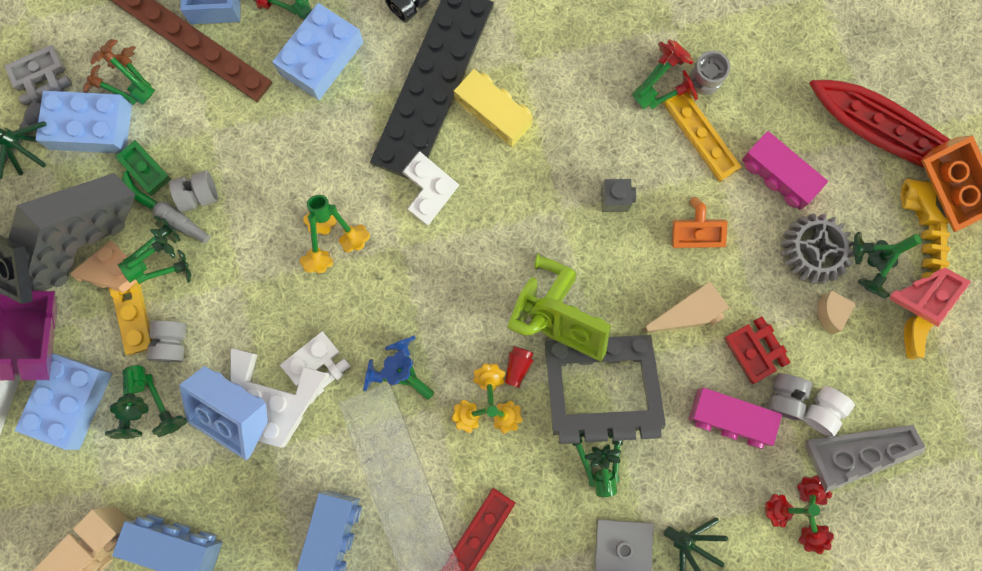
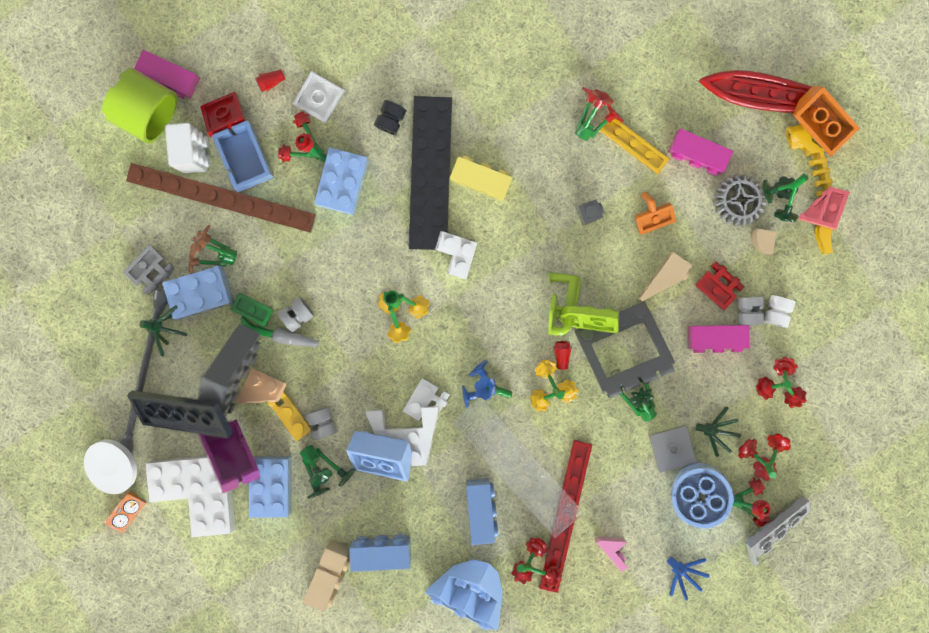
camera: 20 degrees left, 10 degrees up
(133, 266) = (281, 383): plant -> none
(710, 72) = (626, 98): light grey wheel -> none
(861, 454) = (809, 331): light grey wing -> none

